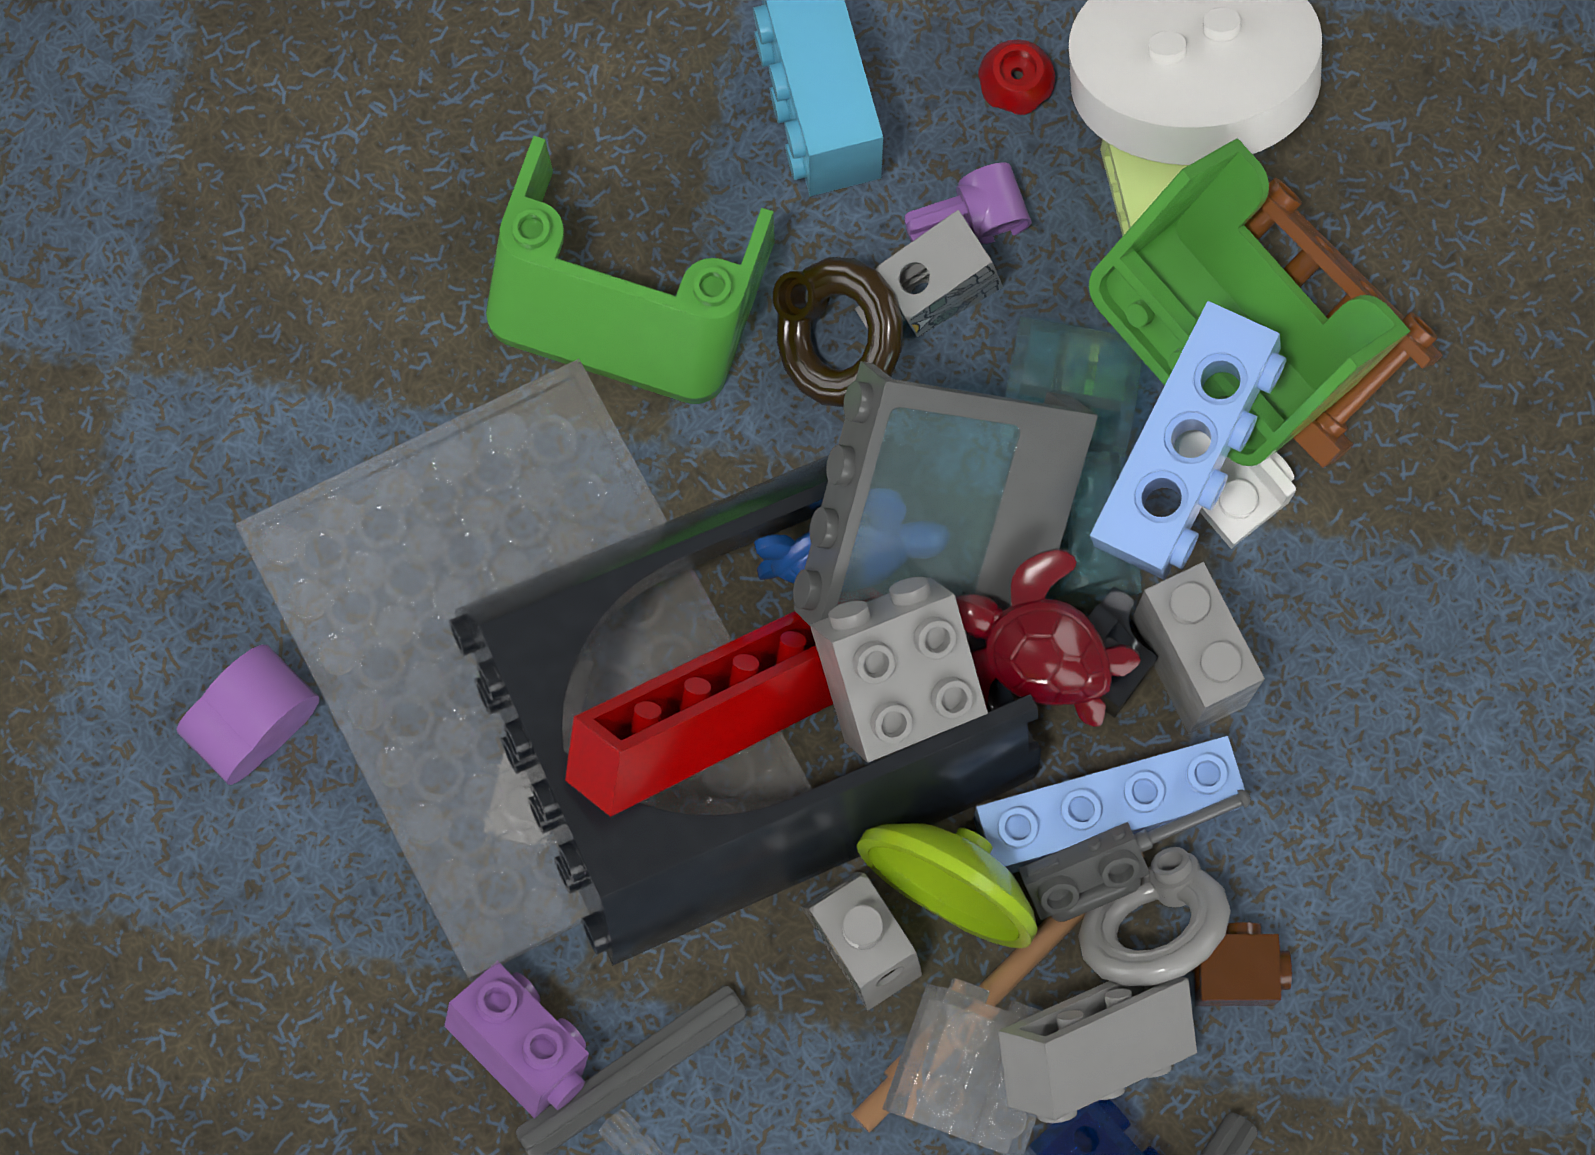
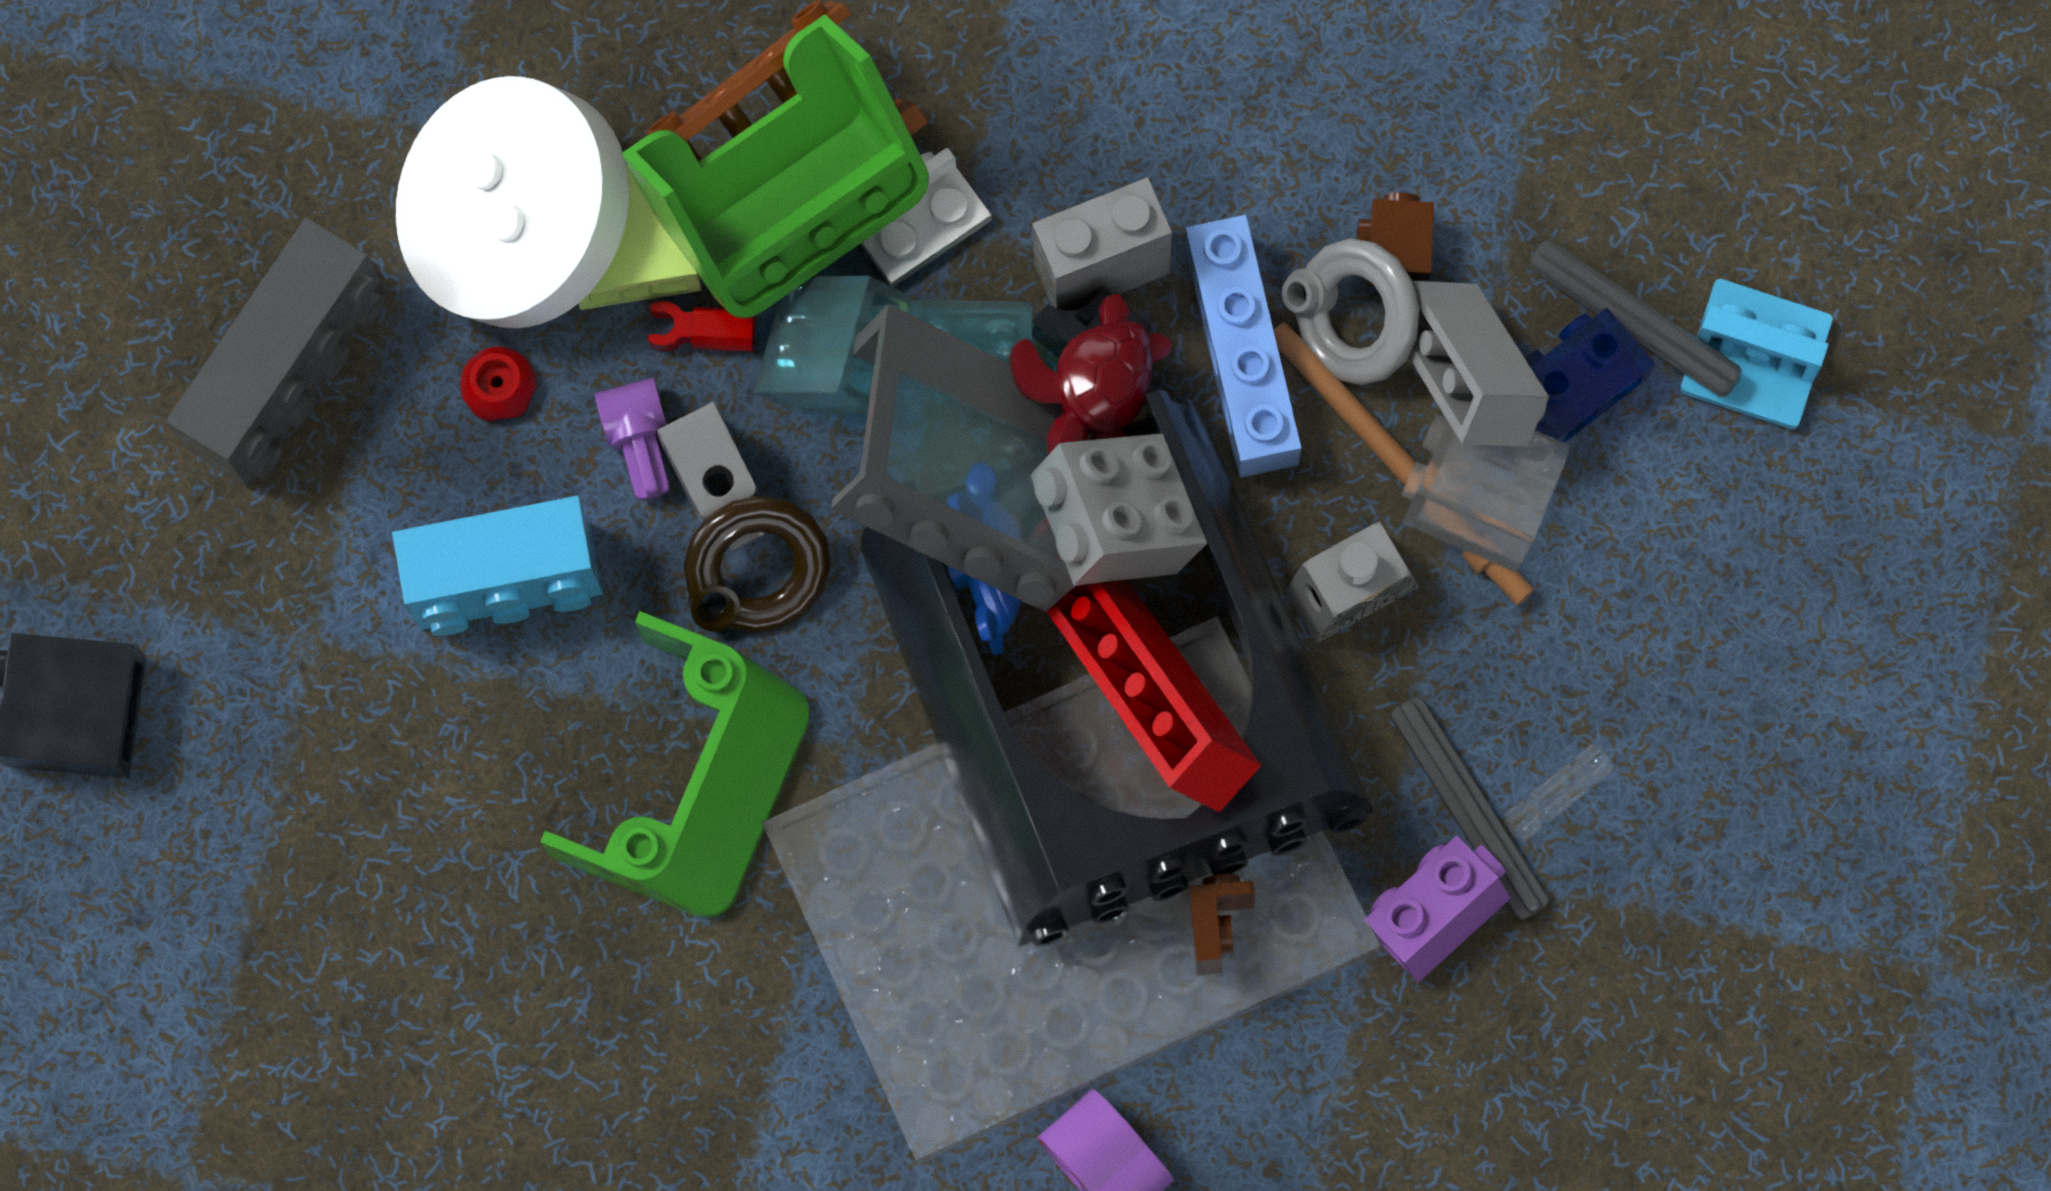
camera: 85 degrees left, 0 degrees up
(470, 796) = (1213, 932): none -> reddish brown bracket
(952, 879) = (1310, 484): lime dish -> none
(1081, 264) = (703, 329): none -> red bar
(1105, 864) = (1299, 347): dark grey piece -> none
(1217, 344) = (986, 292): light blue brick -> none

